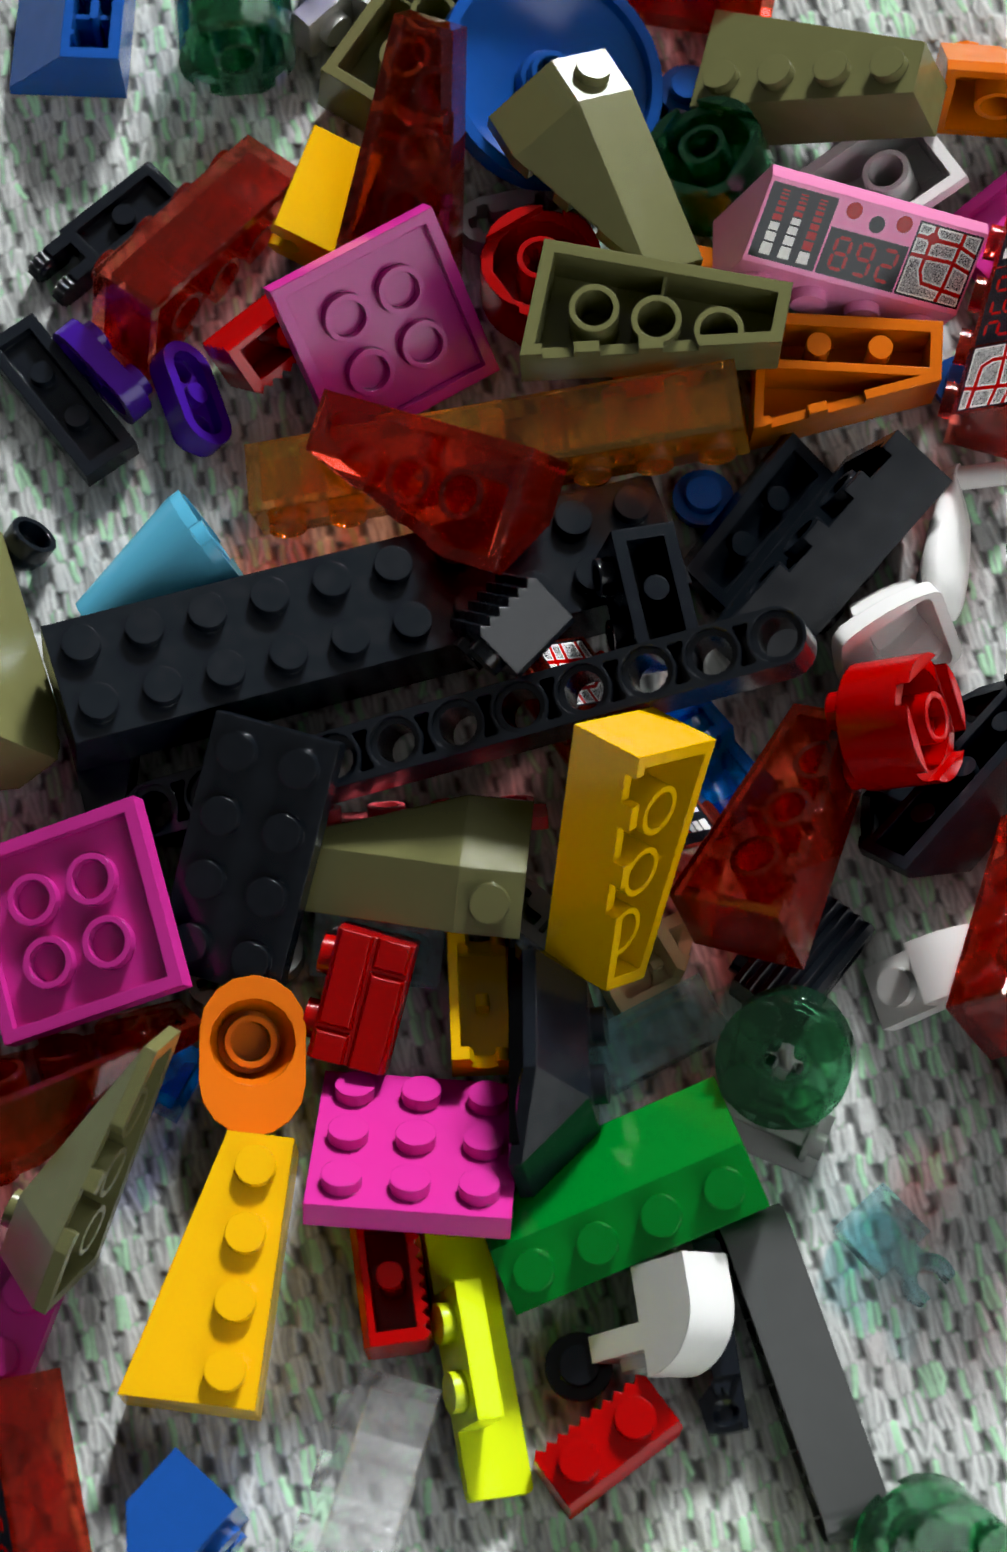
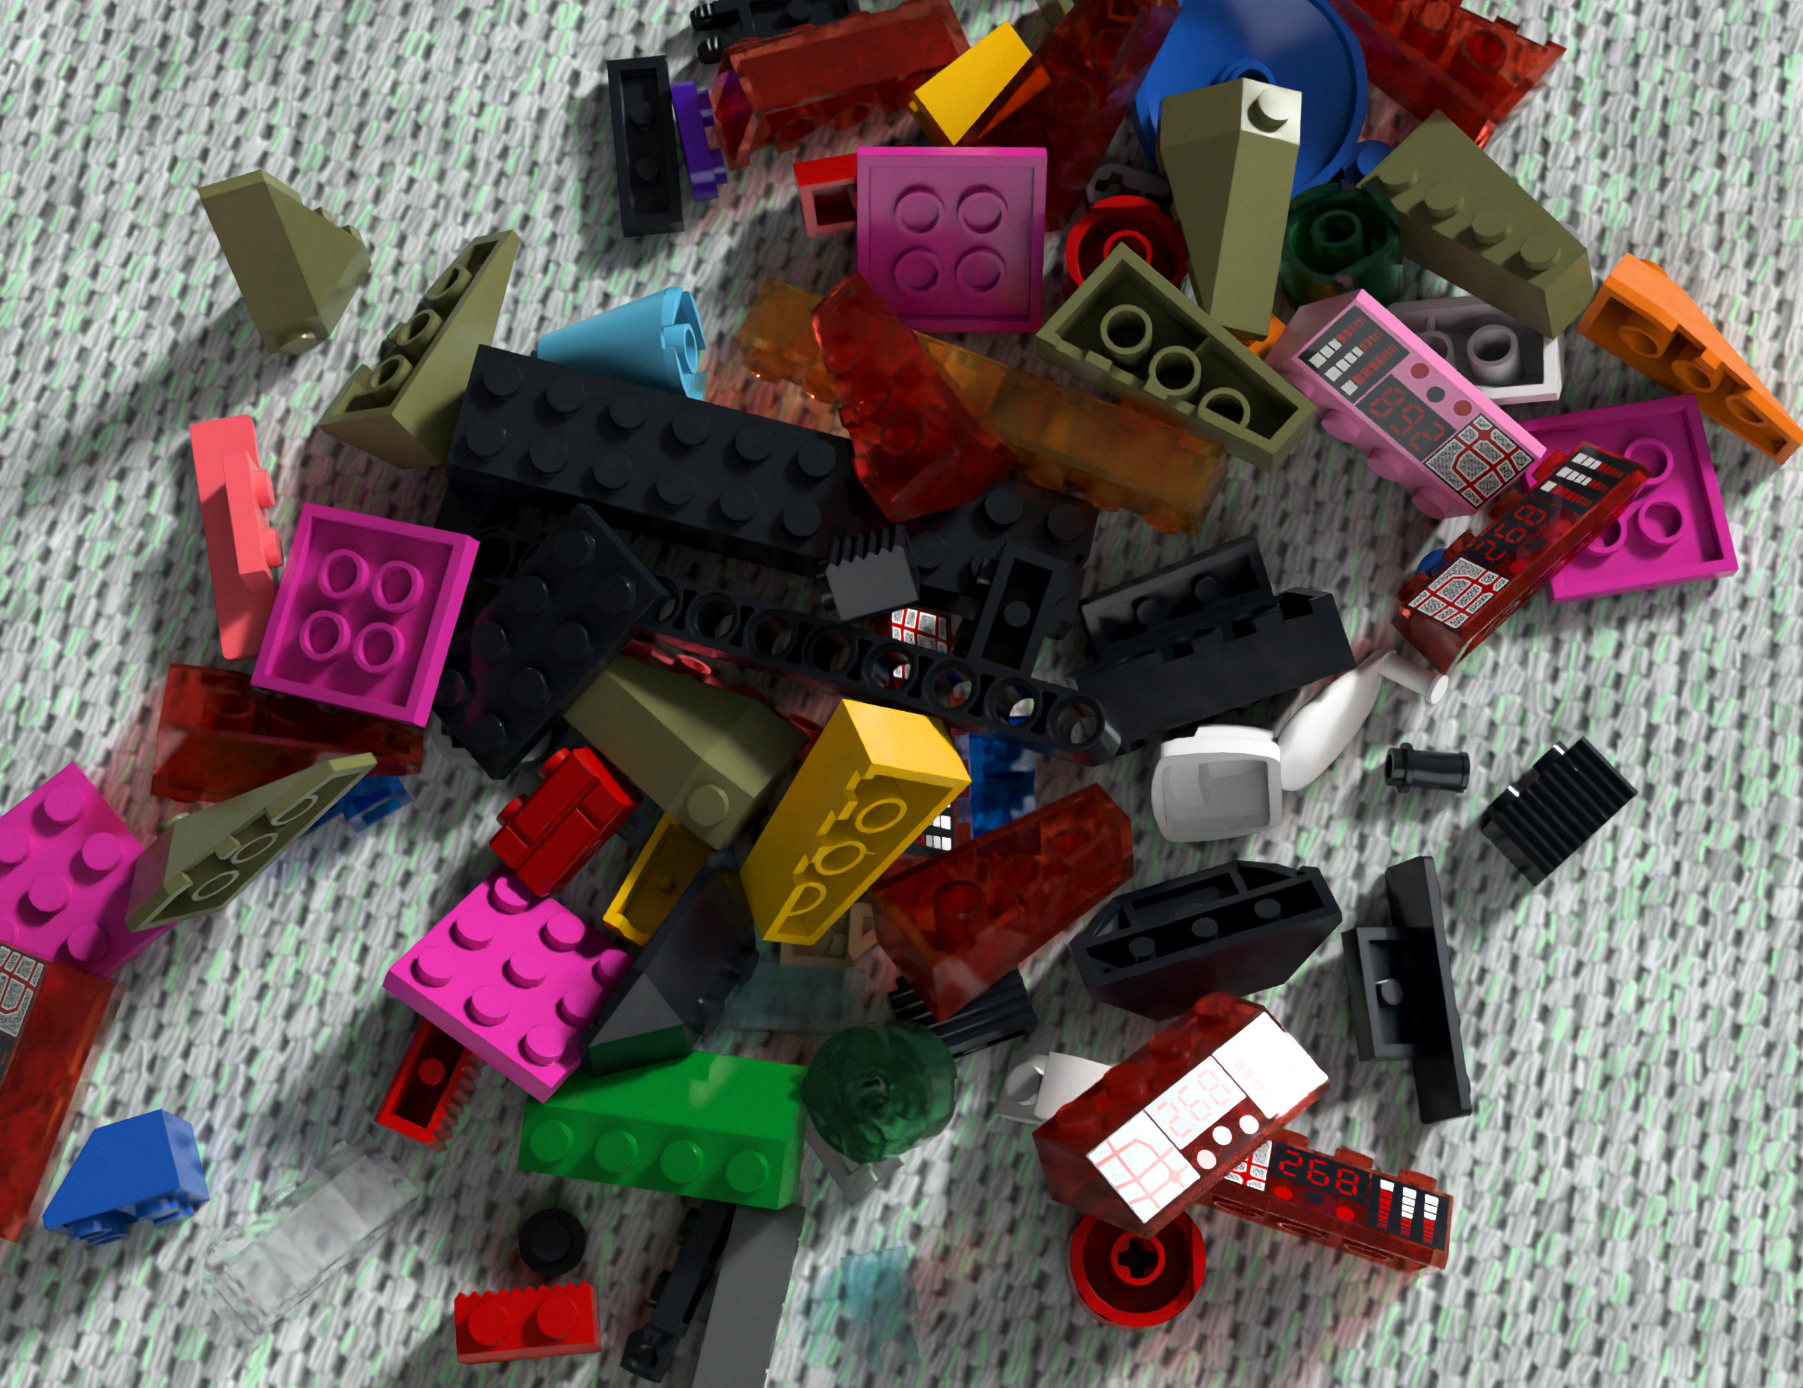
camera: 30 degrees right, 5 degrees up
(28, 543) = (539, 259): black hinge -> none
(190, 399) = (752, 215): dark purple plate -> none
(219, 1302) = (299, 998): yellow wedge -> none
(252, 1055) = (441, 815): orange piece -> none
(476, 1368) = (464, 1199): neon yellow bracket -> none
(682, 1317) = (649, 1257): white brick -> none
(700, 497) = (1142, 549): blue plate -> none
(844, 373) = (1335, 509): orange wedge -> none
(897, 722) = (1166, 855): red brick -> none

